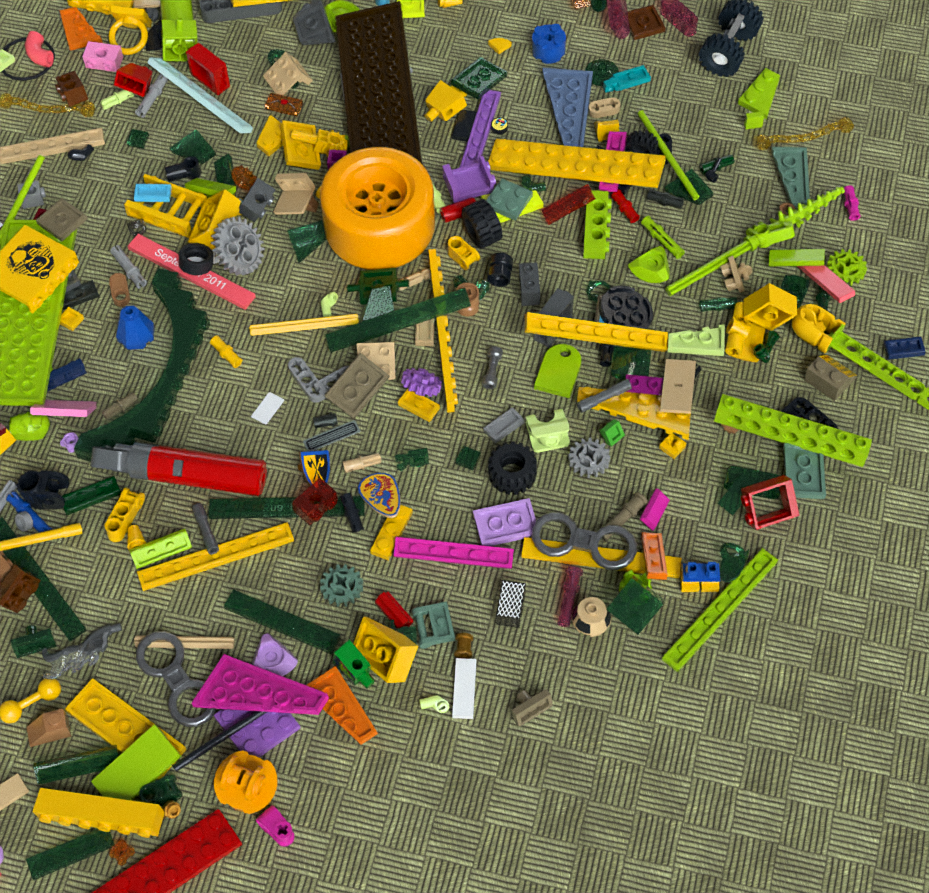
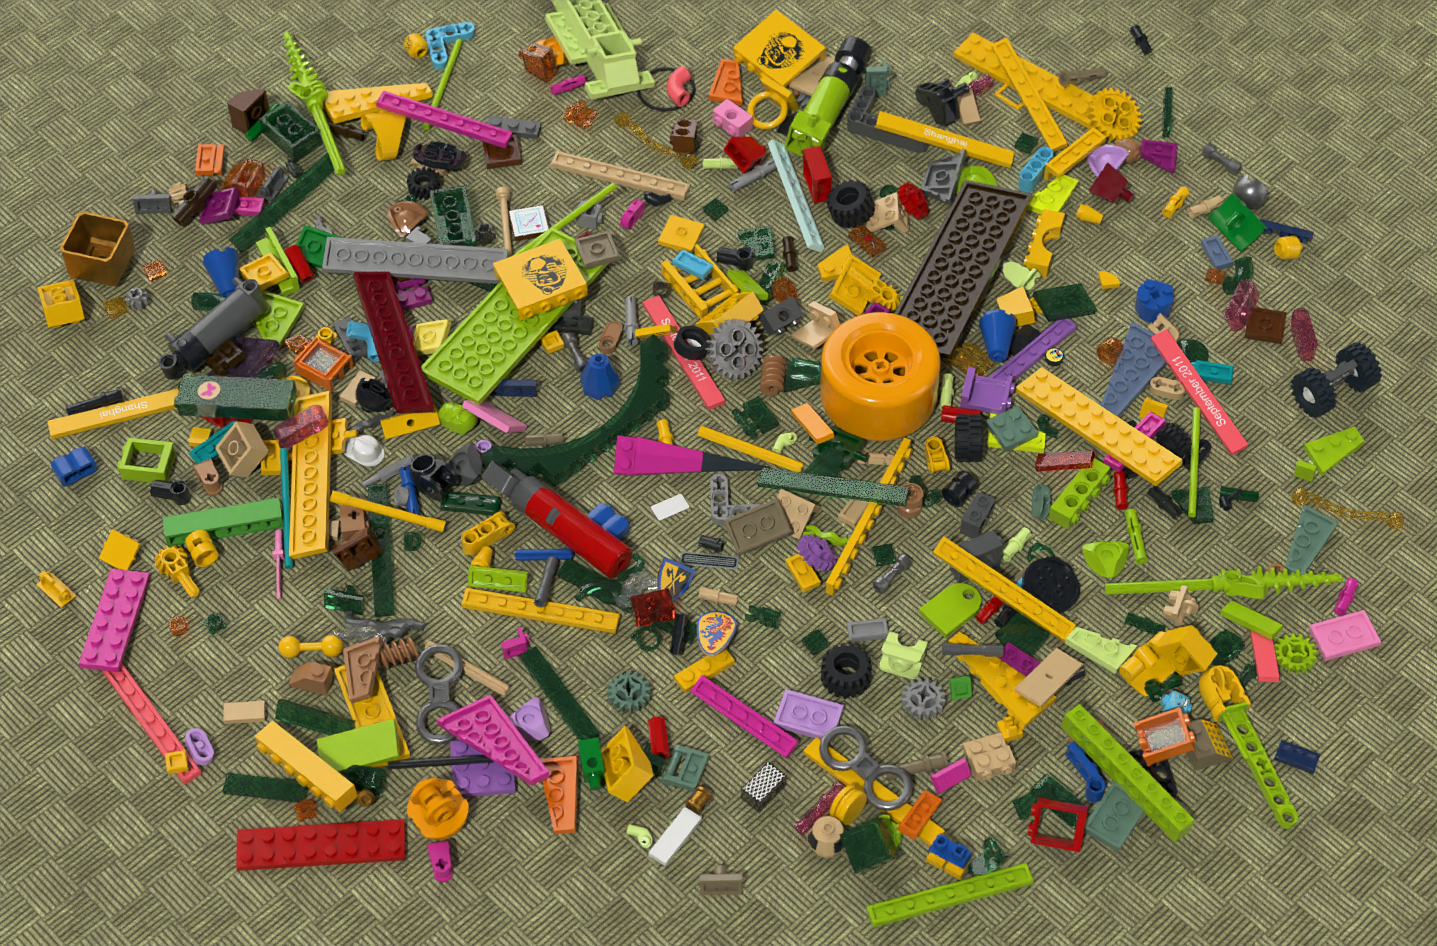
camera: 30 degrees right, 5 degrees down
(57, 558) = (408, 541): none -> clear green tile
(66, 461) = (466, 464): none -> dark grey hat
(69, 176) = (632, 214): none -> dark pink piece
(92, 694) = (361, 668): none -> medium nougat wing
(108, 324) = (570, 342): none -> flat silver piece
(112, 663) = (397, 652): none -> medium nougat piece
(122, 173) = (681, 233): none -> yellow plate
(159, 263) = (659, 330): none -> yellow tile
(185, 506) = (542, 554): none -> blue axle
(216, 599) = (515, 647): none -> dark pink bracket
(220, 444) = (612, 522): none -> blue brick
(224, 374) = (650, 457): none -> dark pink plate
(227, 145) = (789, 254): none -> dark brown pin
(247, 70) = (850, 204): none -> black tyre
(279, 494) = (628, 584): none -> piece
(282, 252) = (772, 375): none -> medium nougat piece
(292, 291) = (759, 414): none -> clear green plate
(302, 52) = (913, 200): none -> red gear
(317, 534) = (638, 638): none -> clear green piece
(343, 276) = (812, 423): none -> light orange tile
(420, 363) = (830, 537): none -> lime hair
(428, 73) = (1020, 275): none -> yellowish green piece
(433, 161) = (964, 358): none -> clear yellow plate
(435, 52) = (1049, 228): none -> yellow arch
(445, 127) = (997, 333): none -> blue cone
(474, 356) = (883, 555): none -> clear green plate
(541, 99) = (1109, 350): none -> clear orange head
(572, 250) = (1040, 502): none -> sand green piece
(575, 290) = (1016, 544): none -> yellowish green pin
(577, 62) = (1154, 327): none -> tan plate
(590, 355) = (988, 610): none -> red axle
(592, 579) = (848, 805): none -> yellow head
(633, 98) = (1199, 392): none -> coral tile
(673, 477) = (989, 757): none -> tan plate
(758, 446) = (1088, 771): none -> blue plate
(788, 356) = (1176, 700): none -> medium azure head
(802, 384) = (1165, 735): none -> orange window
(870, 233) = (1344, 635): none -> bright pink tile

